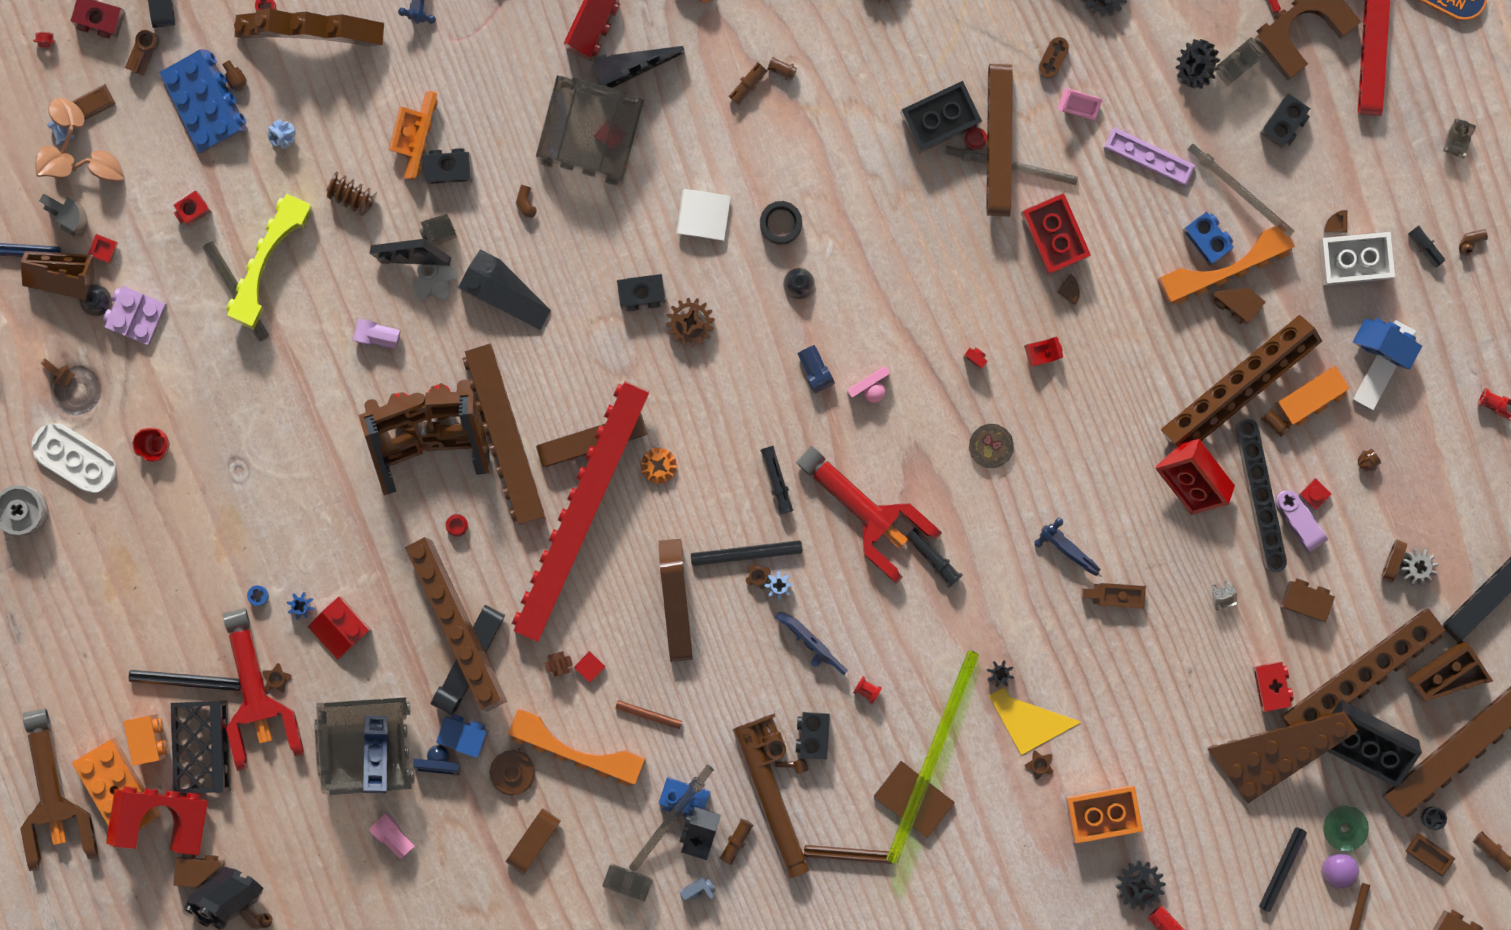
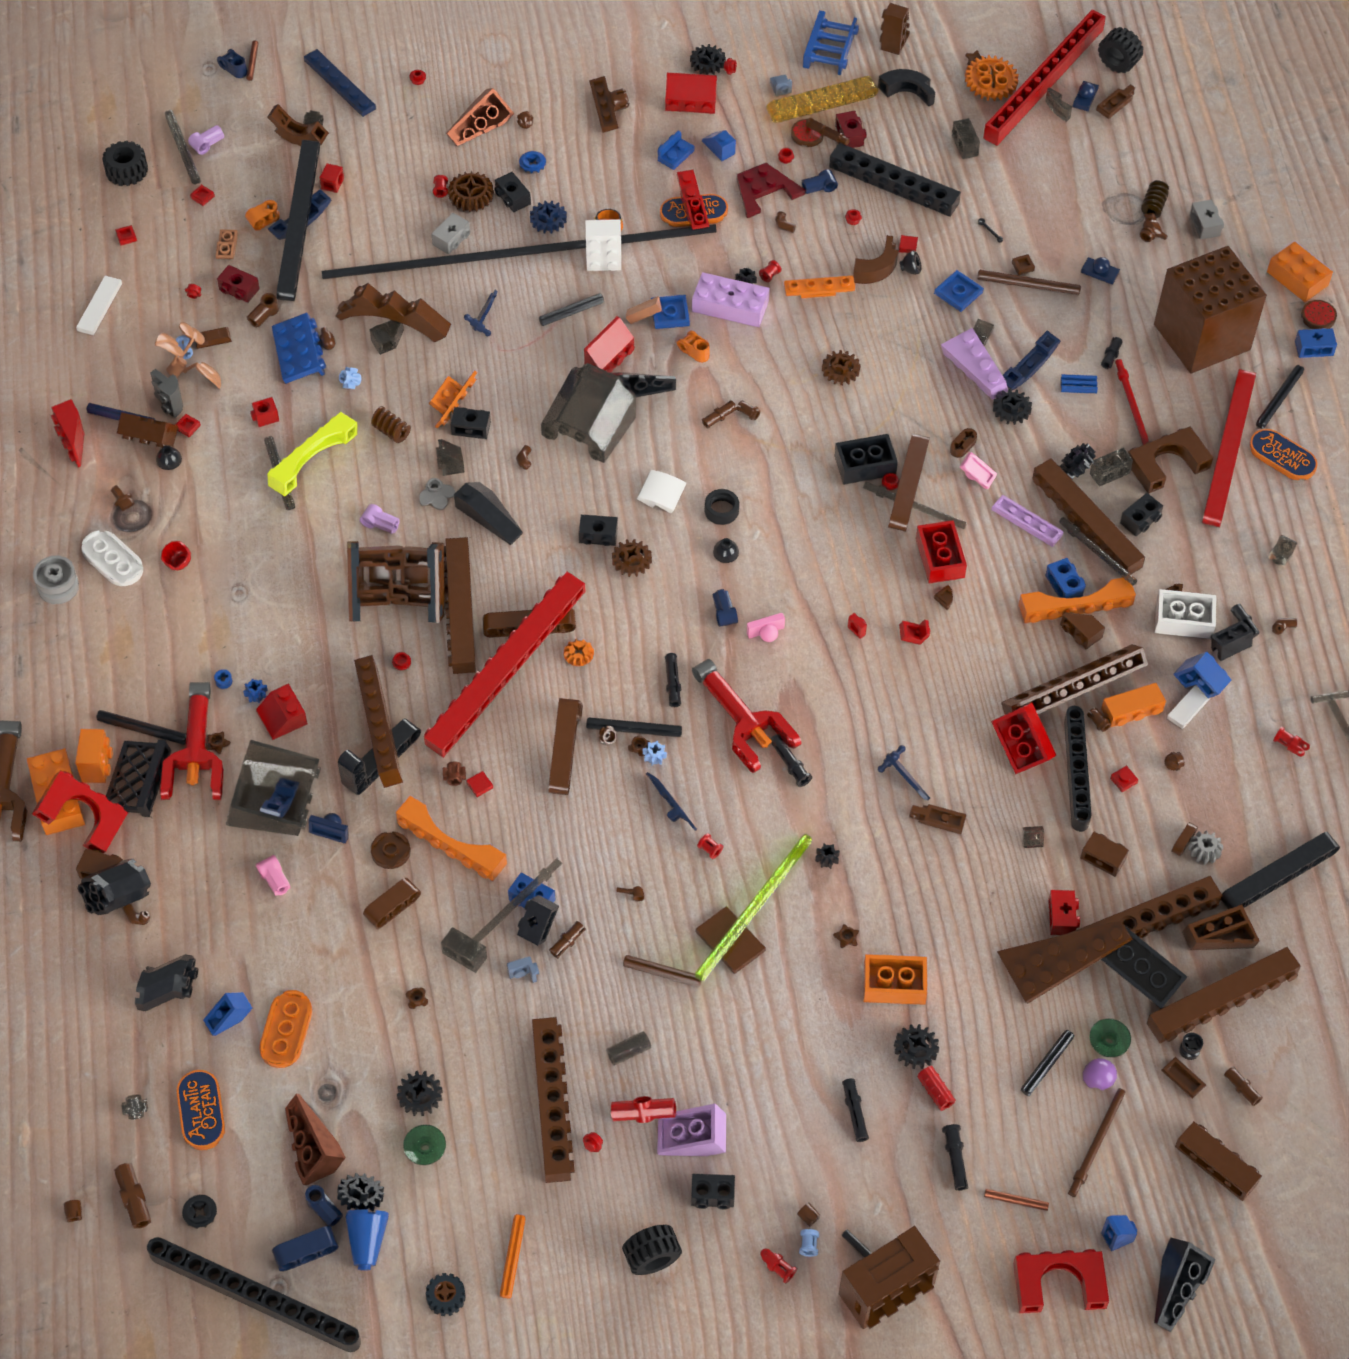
camera: 15 degrees right, 30 degrees down
(134, 315) = (194, 472): lavender plate -> none
(307, 57) = (386, 335): none -> clear smoke slope
(410, 252) = (424, 465): black wing -> none
(463, 736) = (359, 809): blue brick -> none
(647, 714) = (518, 829): copper bar -> none
(719, 573) = (612, 735): none -> reddish brown plate
(754, 745) = (604, 867): reddish brown piece -> none
(819, 735) = (657, 870): black brick -> none
(991, 446) = (856, 692): clear smoke tile -> none
(1029, 723) = (844, 904): yellow sticker -> none
(1221, 139) = (1087, 515): none -> reddish brown brick
(1301, 521) = (1108, 792): lavender piece -> none
(1414, 279) = (1232, 640): none -> black hinge

